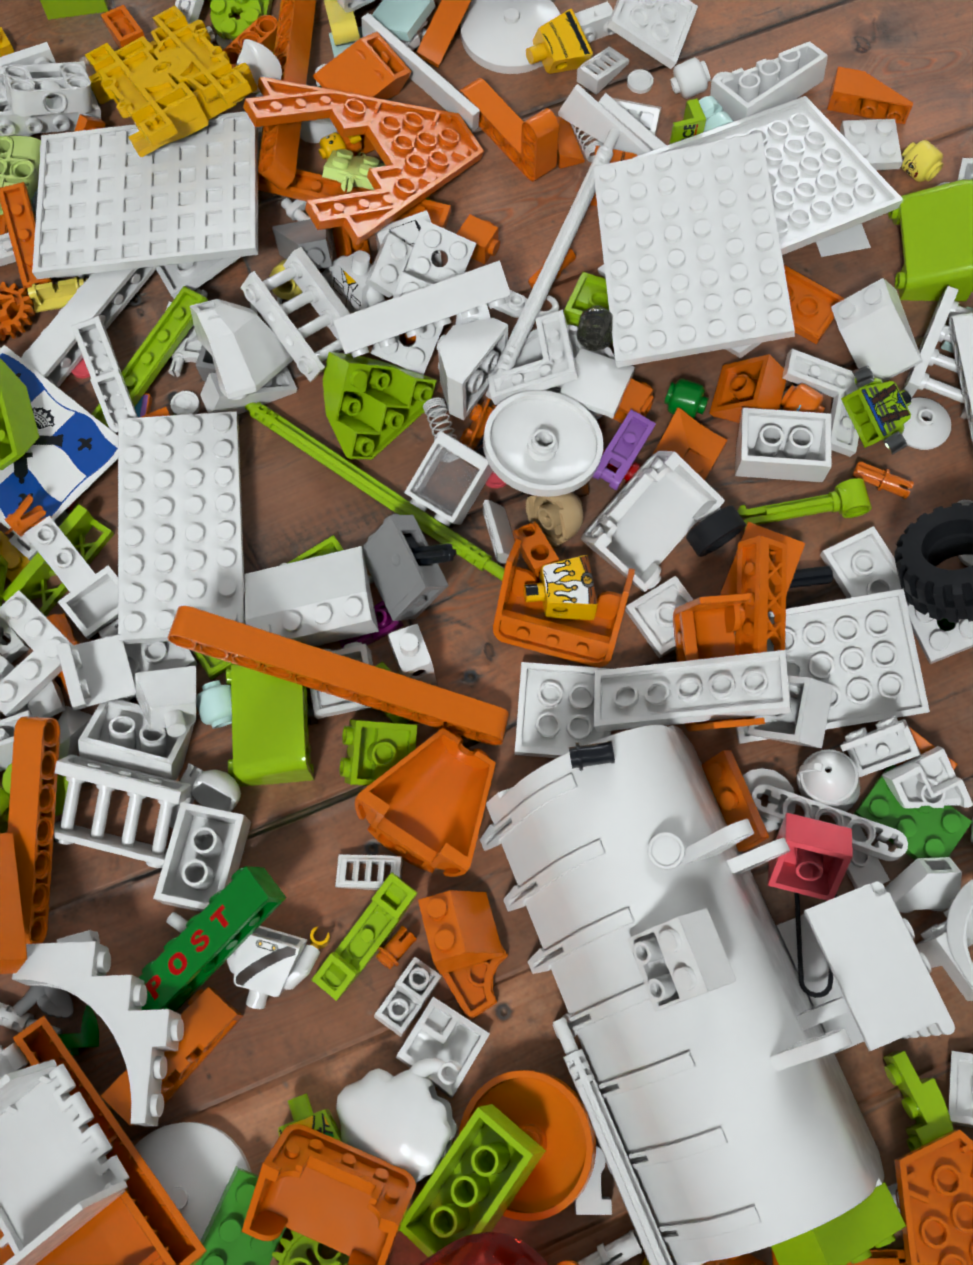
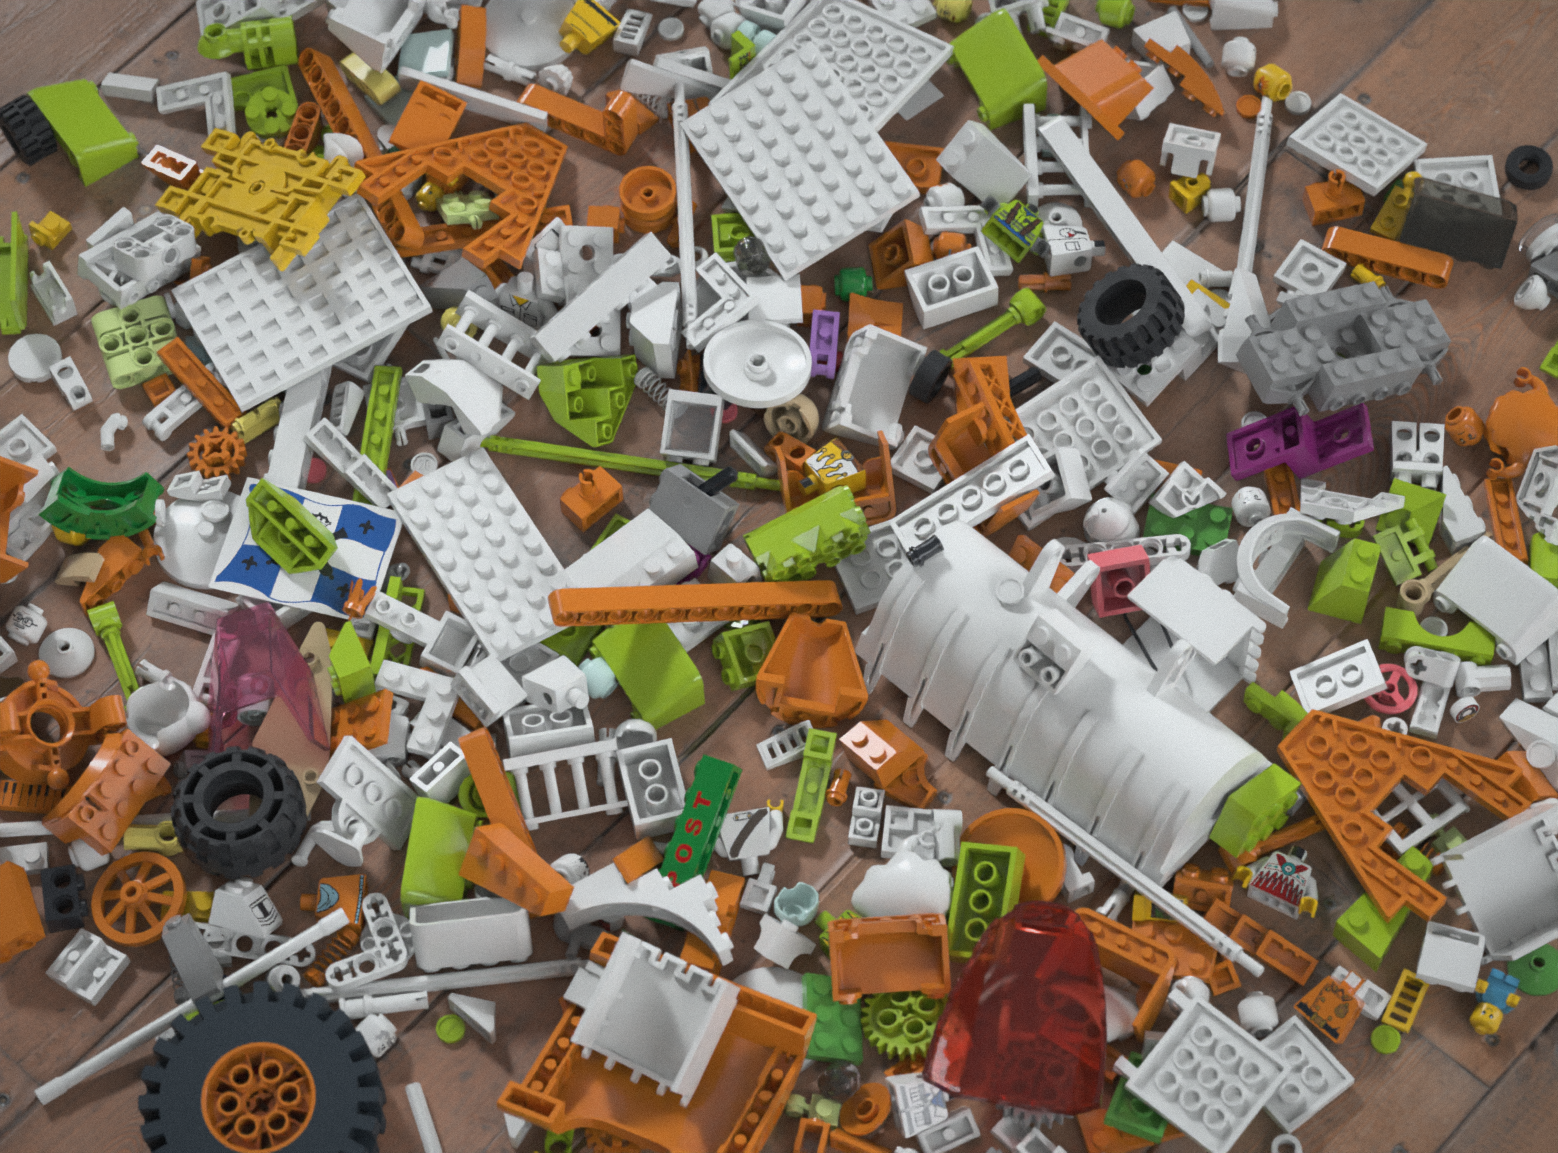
camera: 25 degrees left, 10 degrees down
(67, 914) = (571, 867): none -> white head
(92, 502) = (398, 570): none -> light grey arm
(130, 942) = (638, 859): none -> orange slope
(143, 313) = (345, 406): none -> white slope
(238, 1110) = (781, 941): none -> white brick
(249, 1033) = (760, 893): none -> white plate
(277, 1071) = (797, 904): none -> light aqua hair
(316, 508) = (591, 498): none -> orange brick
(470, 60) = (509, 70): none -> white pin
(478, 1065) = (947, 829): none -> white piece
(500, 650) = (809, 535): none -> lime brick
(507, 83) = (556, 78): none -> white piece
(529, 230) = (648, 199): none -> orange wheel
(688, 92) = (723, 28): none -> white head
(822, 347) = (944, 195): none -> white head
(925, 457) = (1070, 249): none -> white torso

